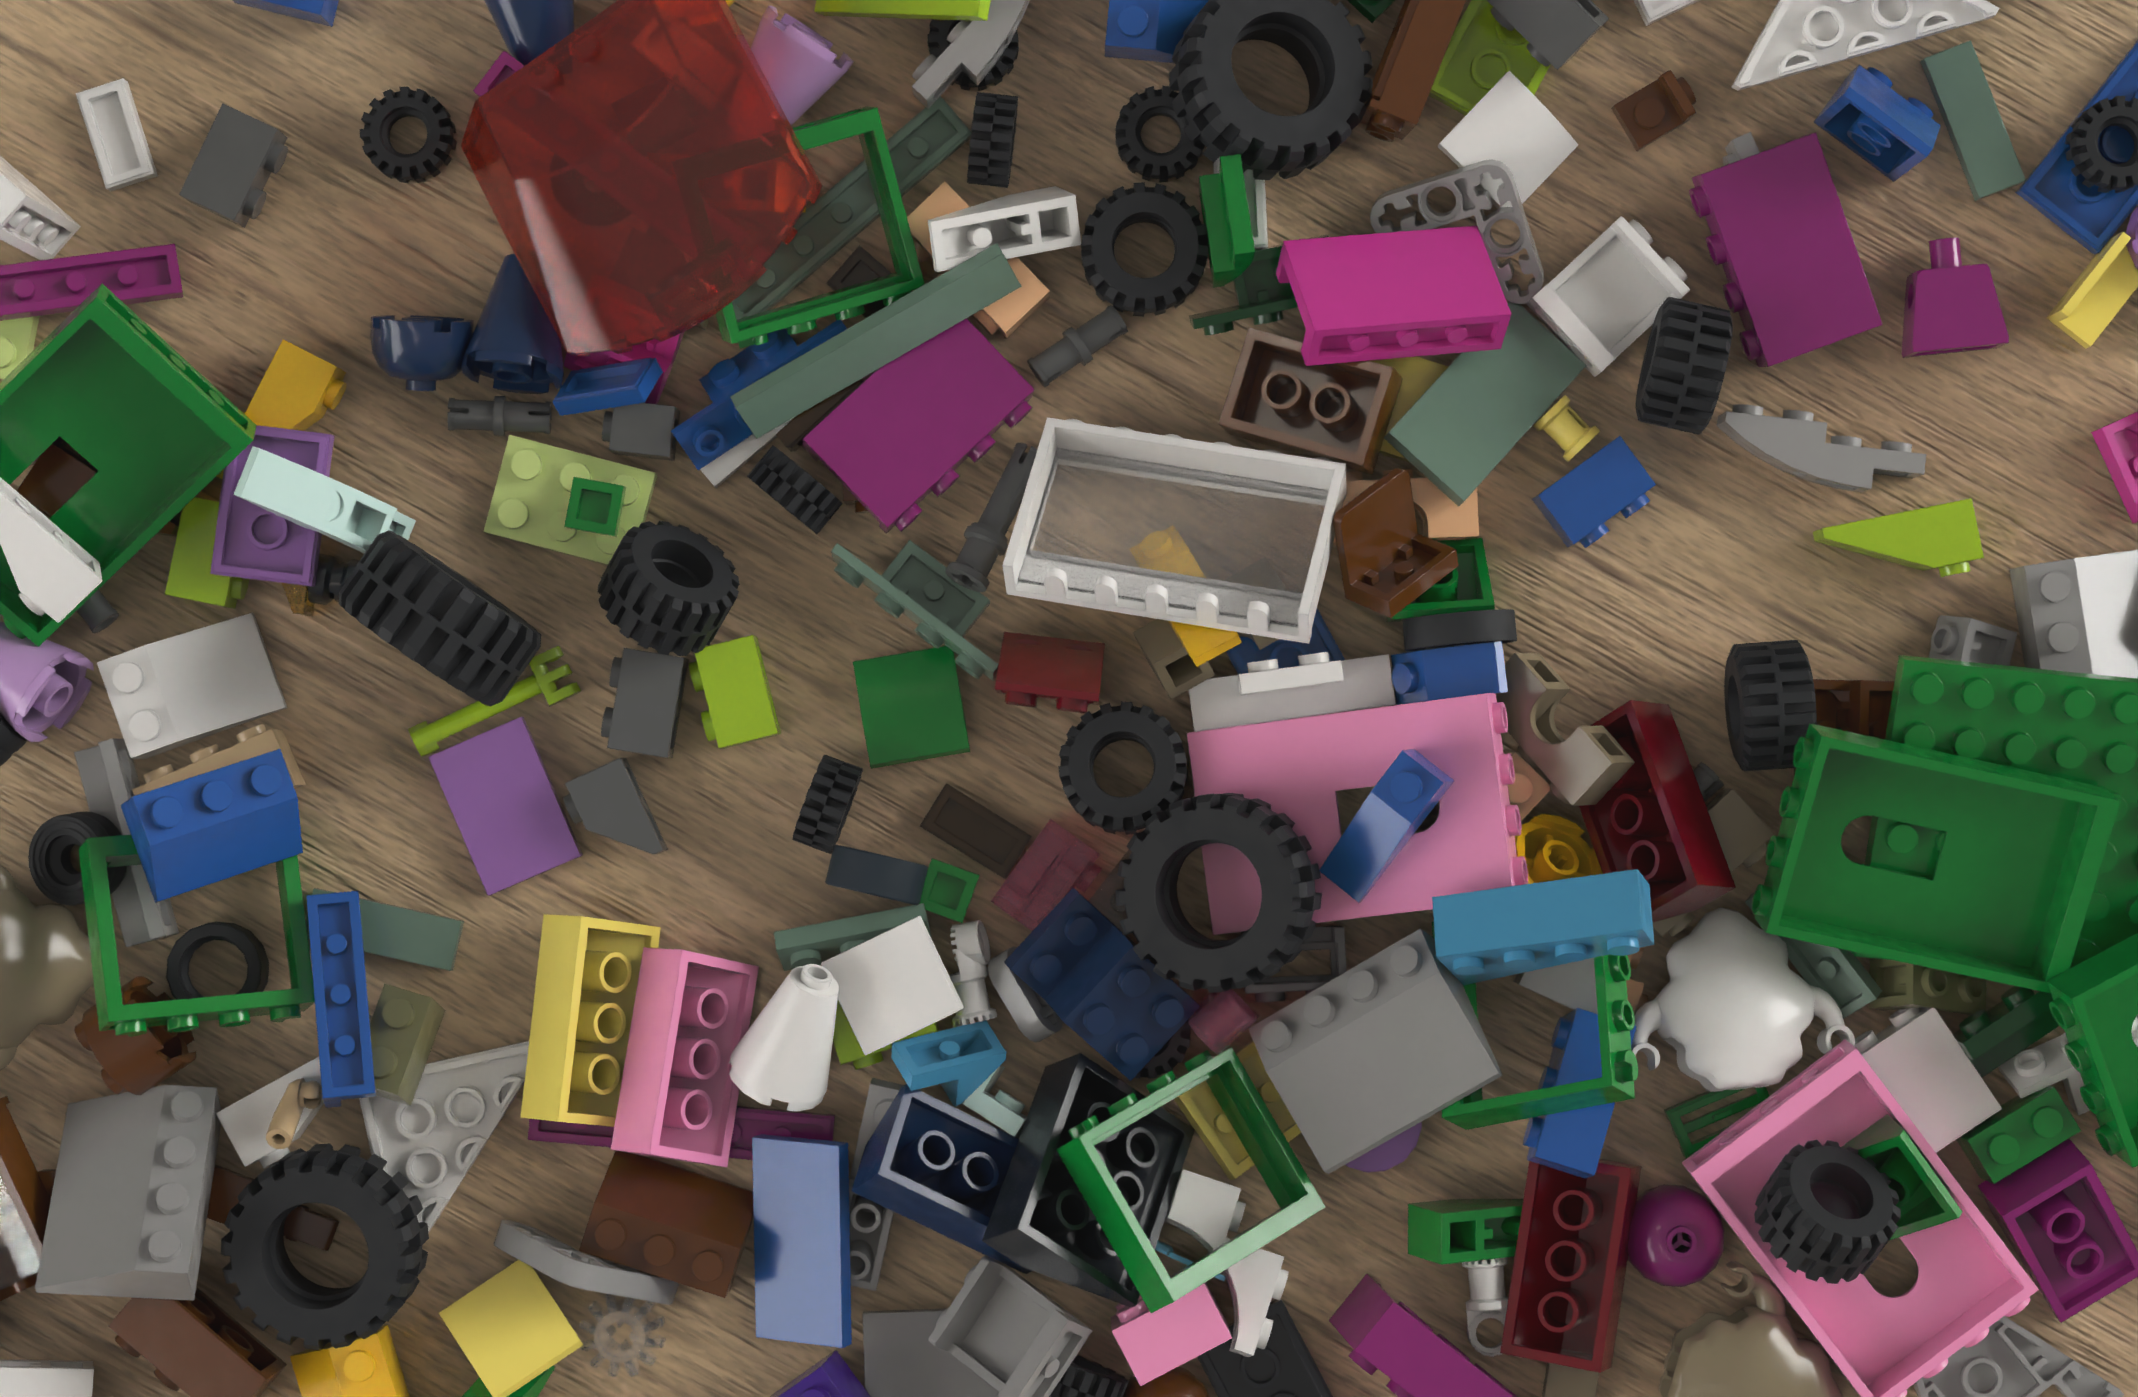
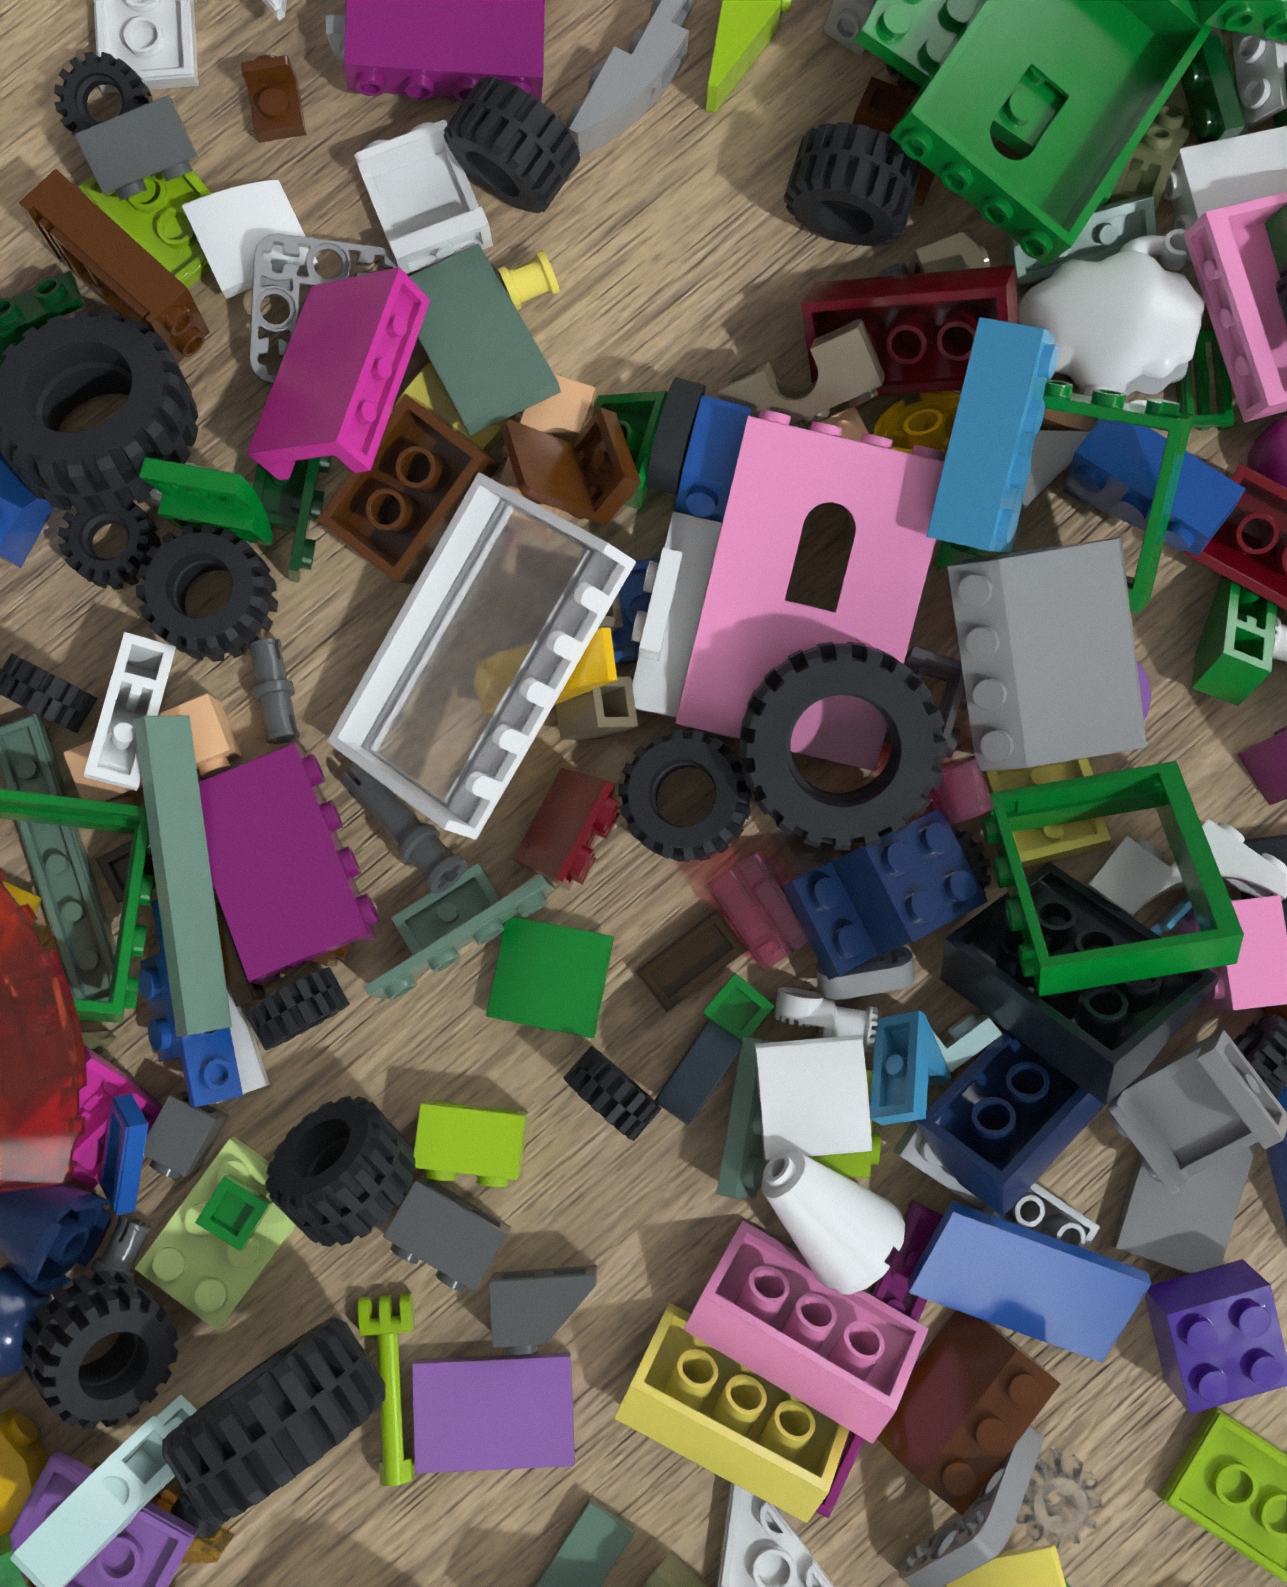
camera: 75 degrees left, 5 degrees down
(442, 408) = (121, 1376): none -> black tyre
(1385, 823) = (837, 560): blue slope -> none
(1594, 493) = (596, 276): blue brick -> none

